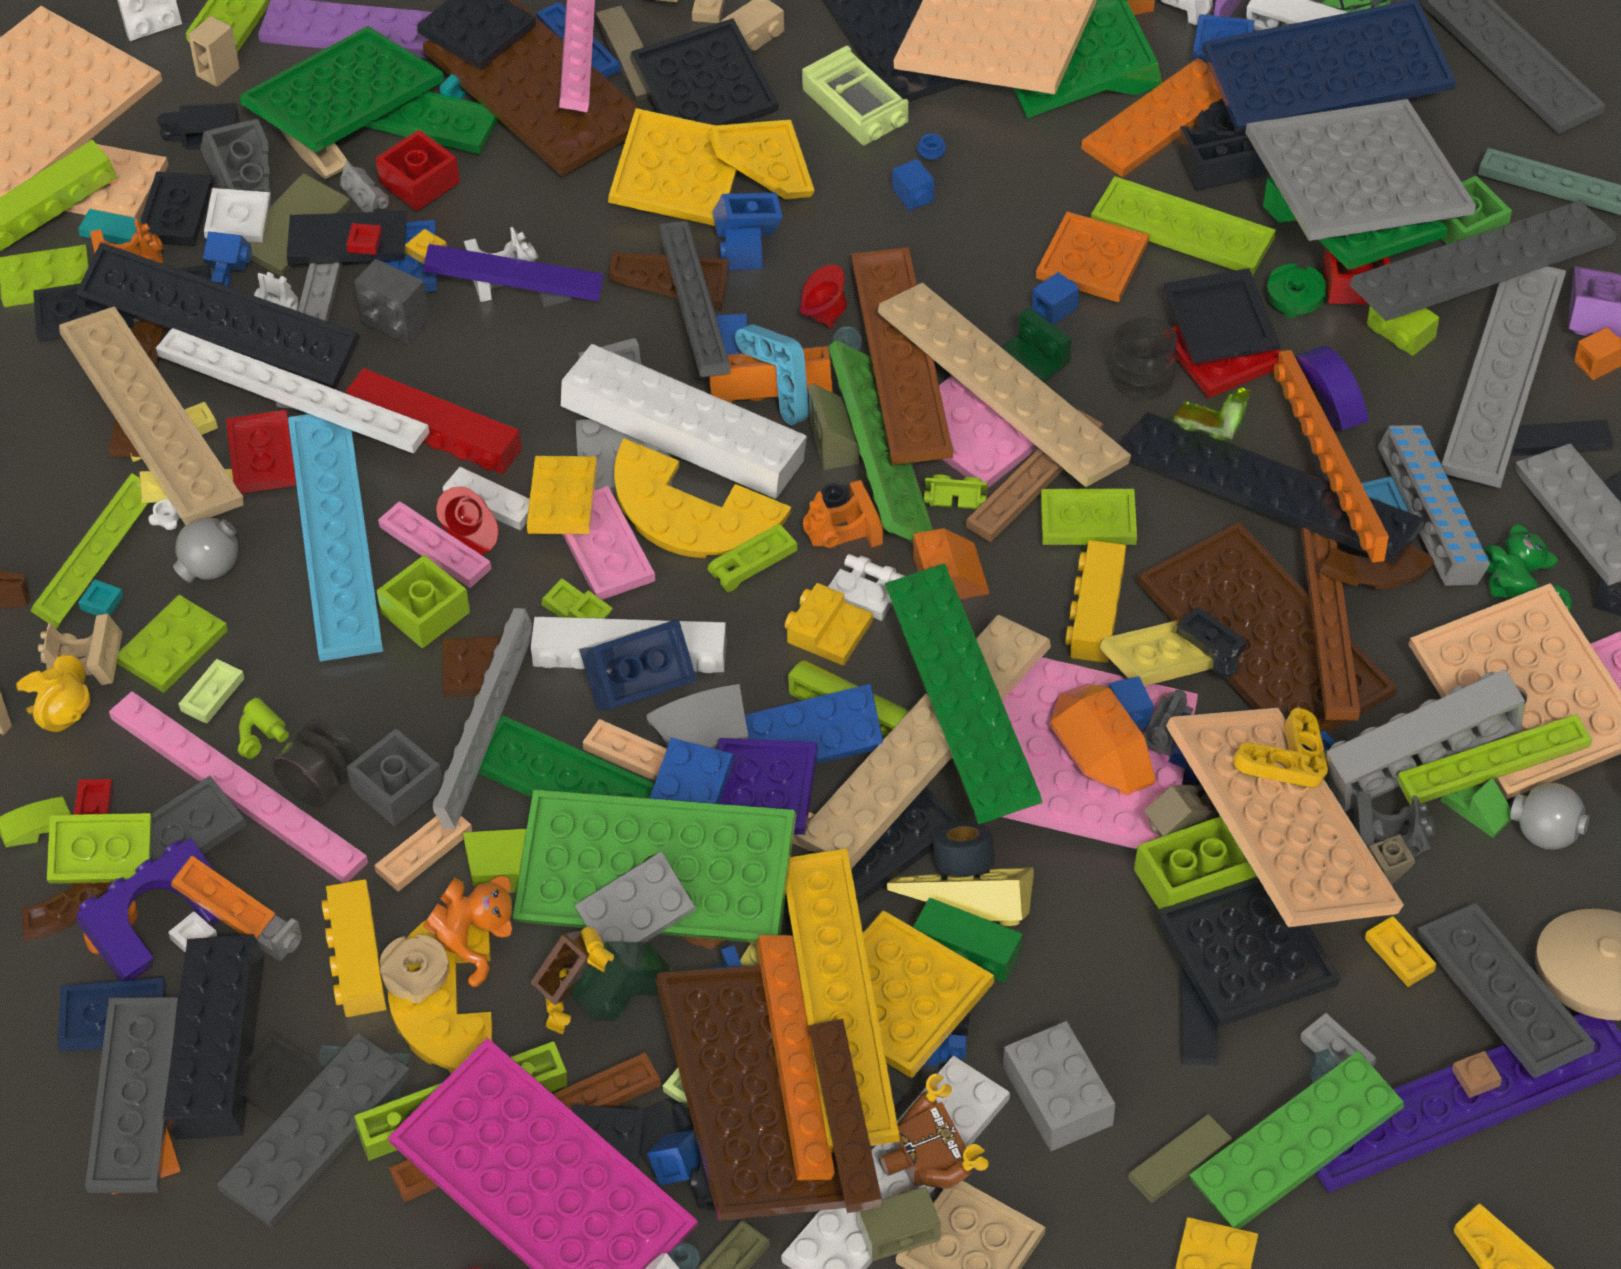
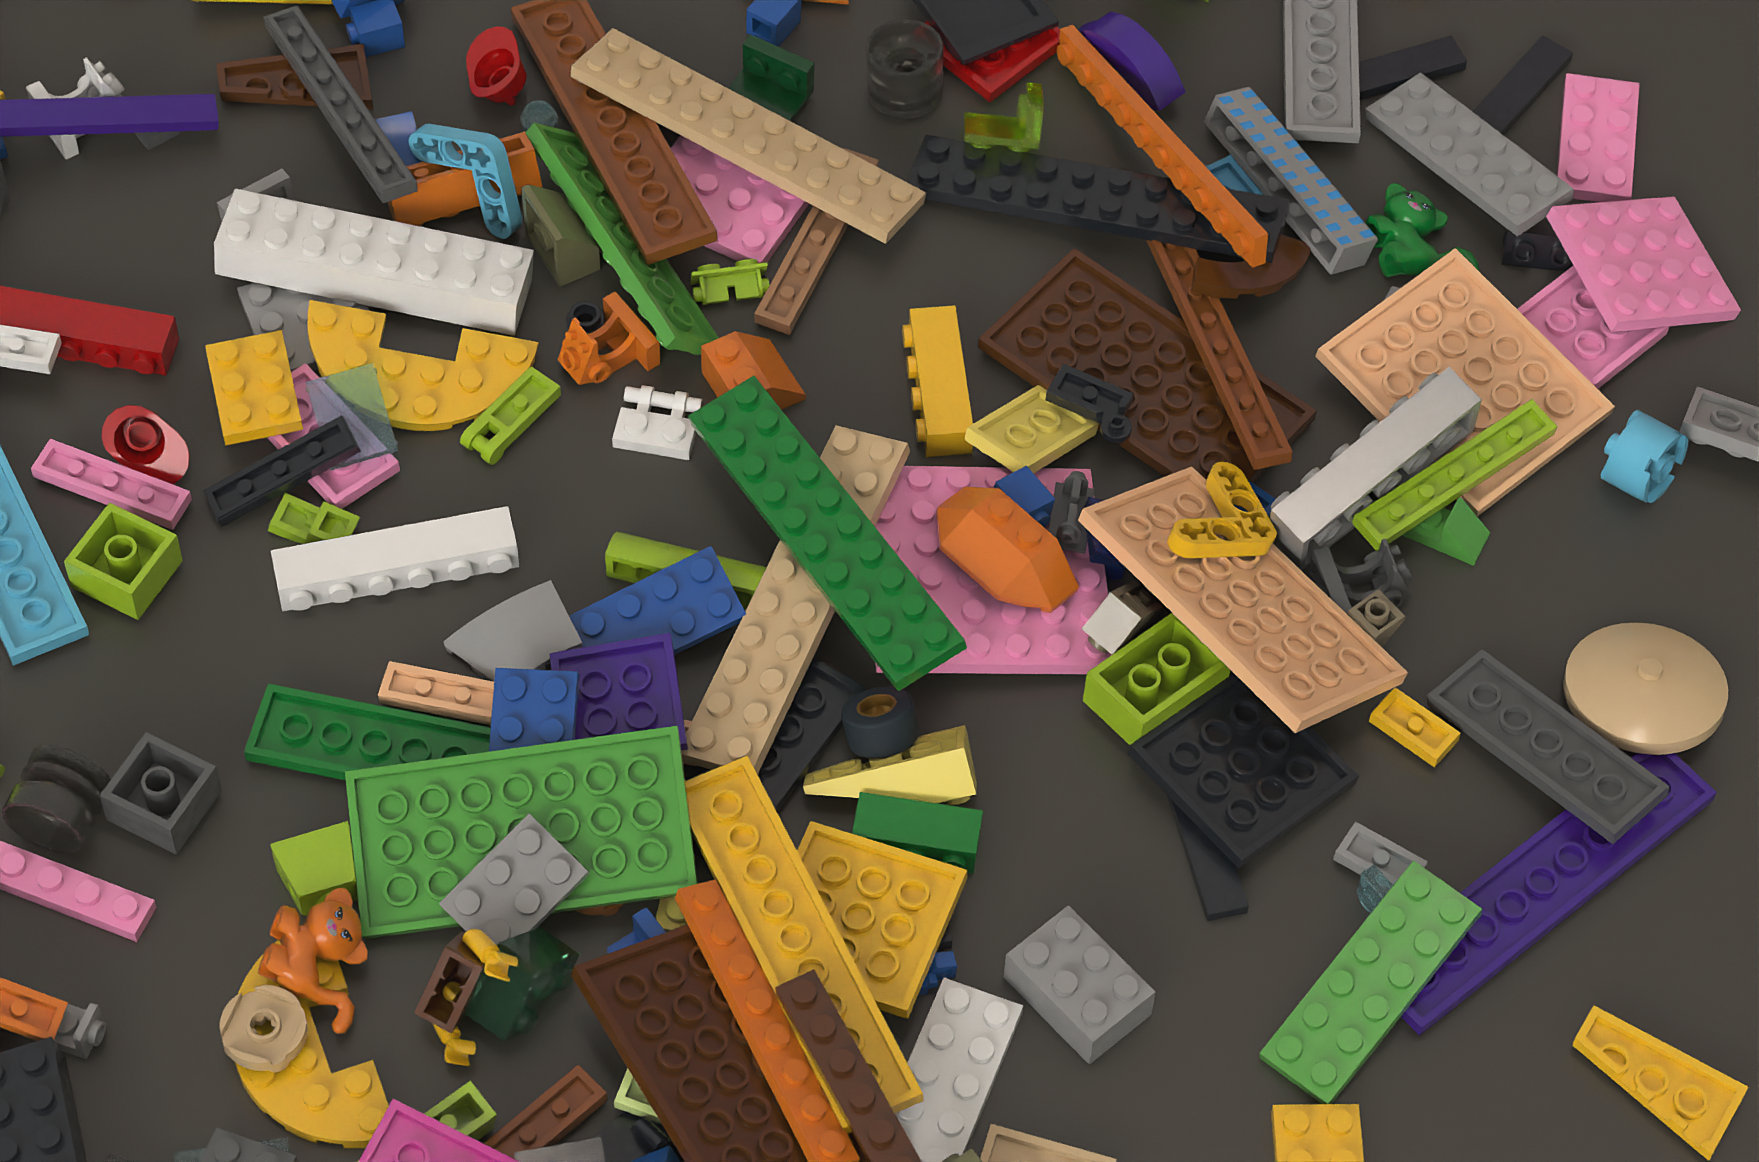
camera: 20 degrees left, 5 degrees up
(355, 948) = (179, 1021): yellow brick -> none
(420, 852) = (222, 874): light nougat plate -> none
(466, 663) = (211, 628): reddish brown plate -> none
(483, 719) = (248, 706): light grey plate -> none
(503, 503) = (185, 413): white plate -> none
(563, 560) = (281, 471): none -> black tile
(628, 531) = (360, 401): none -> clear light blue piece
(638, 665) = (417, 584): dark blue slope -> none
(827, 624) = (627, 479): yellow plate -> none
(931, 1144) = (959, 1095): dark orange torso -> none
(1087, 515) = (896, 278): lime plate -> none
(1179, 1158) = (1241, 1036): olive tile -> none
(1476, 1074) = (1547, 854): medium nougat plate -> none
(1550, 816) = (1534, 526): light grey brick -> none

